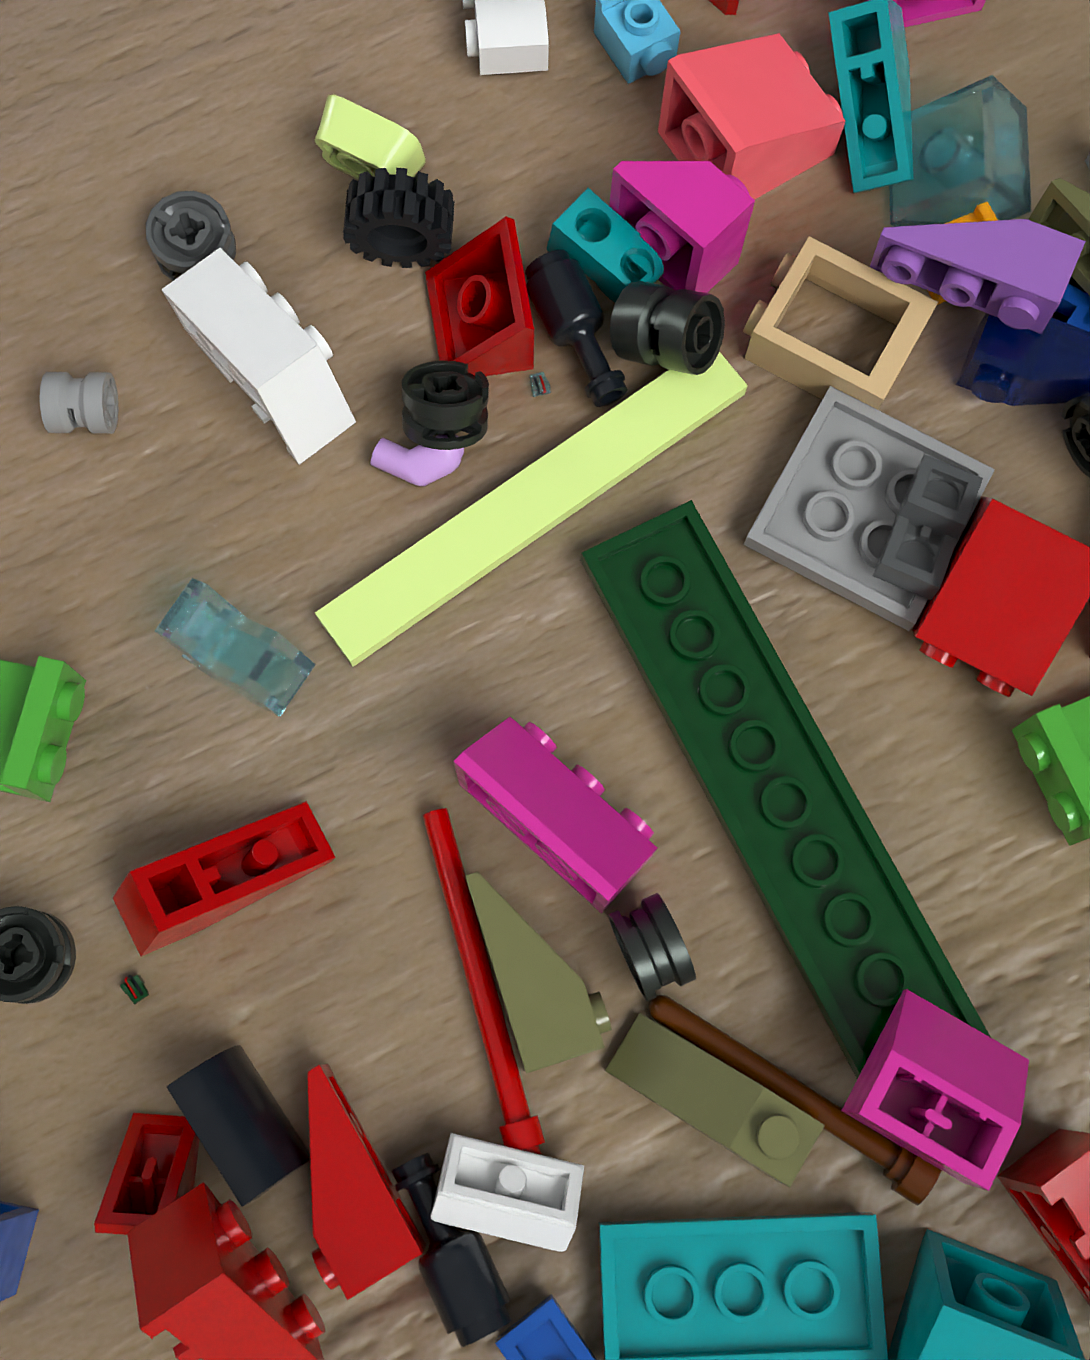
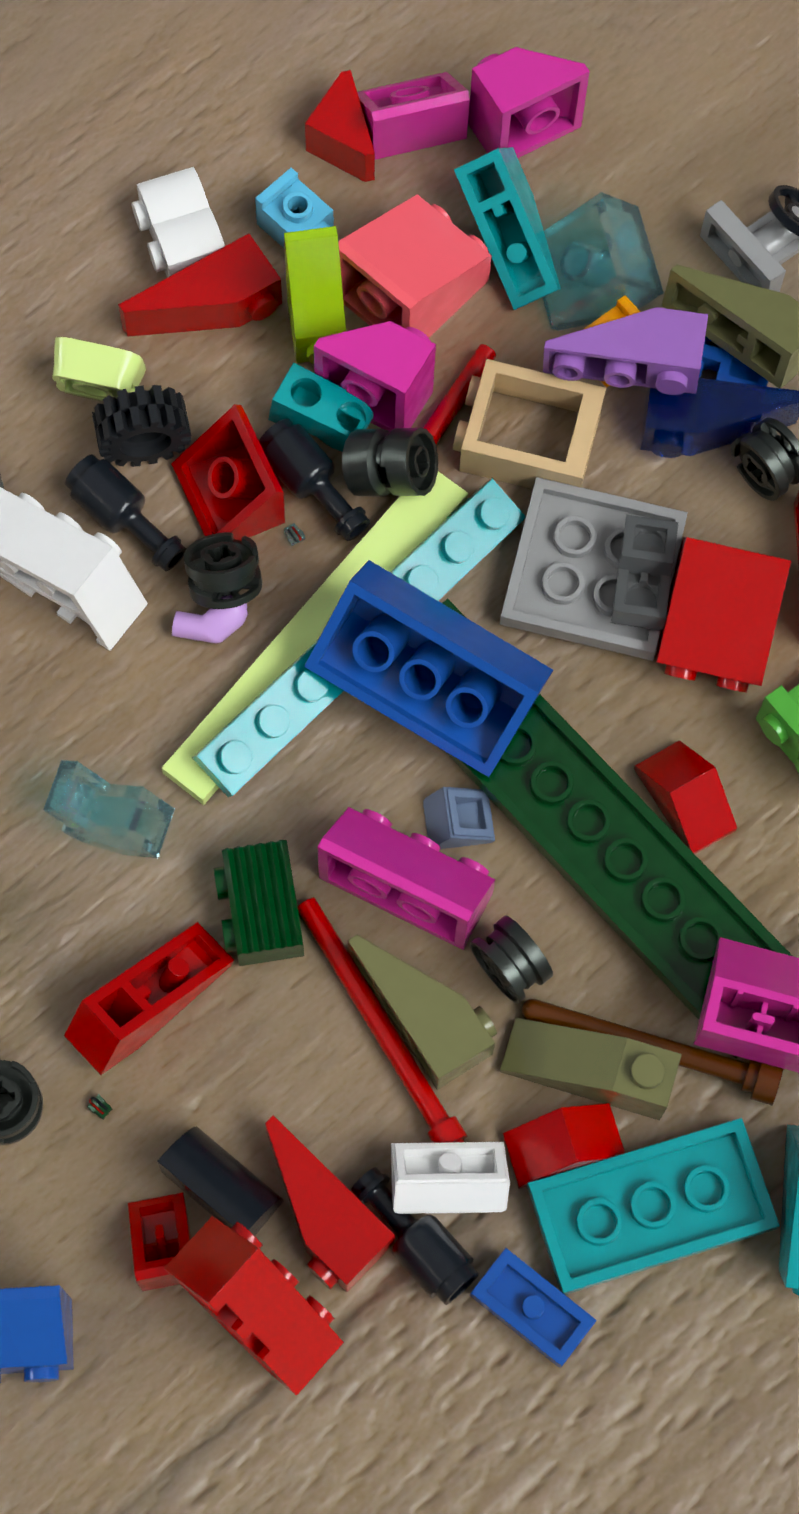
camera: 15 degrees left, 5 degrees down
(342, 284) = (118, 506): none -> black piece
(380, 800) = (261, 903): none -> dark green brick
(518, 93) = (210, 294): none -> red slope
(577, 521) = (302, 695): none -> plate
(633, 97) = (313, 288): none -> lime slope
(636, 757) = (458, 817): none -> sand blue slope
(645, 575) = (427, 667): none -> blue slope
(656, 1184) = (562, 1142): none -> red slope
(762, 273) = (457, 393): none -> red bar
(910, 800) = (688, 795): none -> red slope

